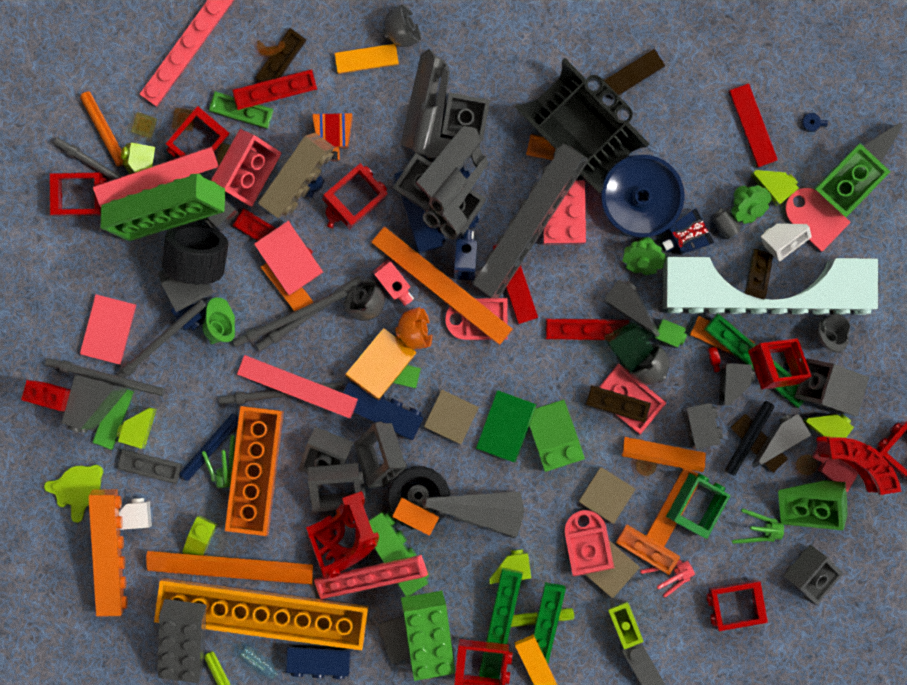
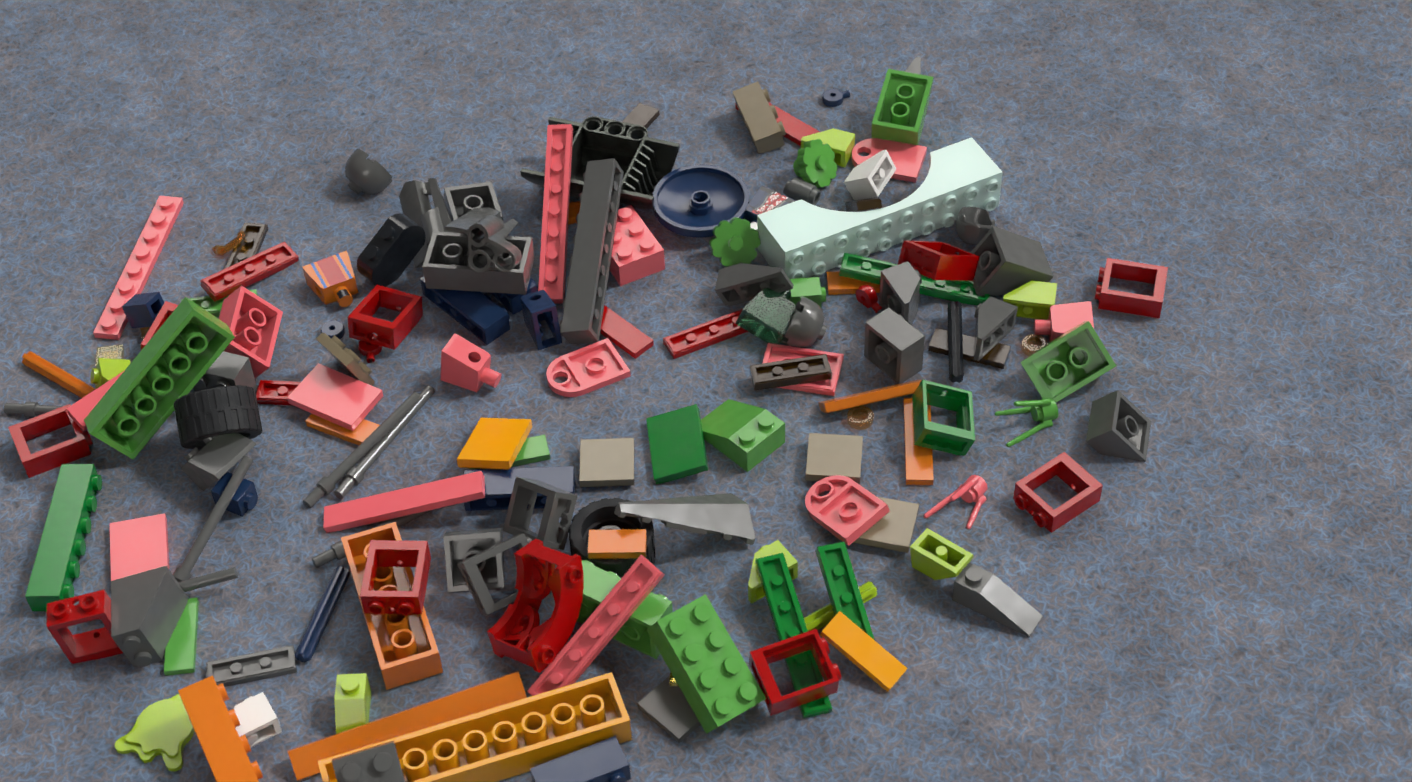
camera: 25 degrees left, 40 degrees down
(61, 292) = (64, 535): none -> green brick
(137, 429) = (217, 629): lime slope -> none
(182, 96) = (143, 309): none -> dark blue brick
(219, 321) = (276, 488): bright green piece -> none
(223, 474) = (352, 630): bright green plant -> none
(270, 449) = (396, 554): none -> red window
(296, 175) = (308, 310): dark tan brick -> none
(307, 232) = (346, 358): none -> dark tan tile
(365, 301) = (448, 395): dark grey cylinder -> none
(366, 58) = (341, 216): light orange tile -> none
(383, 135) = (391, 250): none -> black brick
(413, 329) = (515, 398): orange cylinder -> none
(442, 285) = (542, 354): orange tile -> none
(522, 164) = (556, 211): none -> coral plate
(648, 549) = (916, 485): orange tile -> none
(736, 125) = (759, 117): none -> dark tan brick
(868, 462) = (1101, 303): red fence -> none

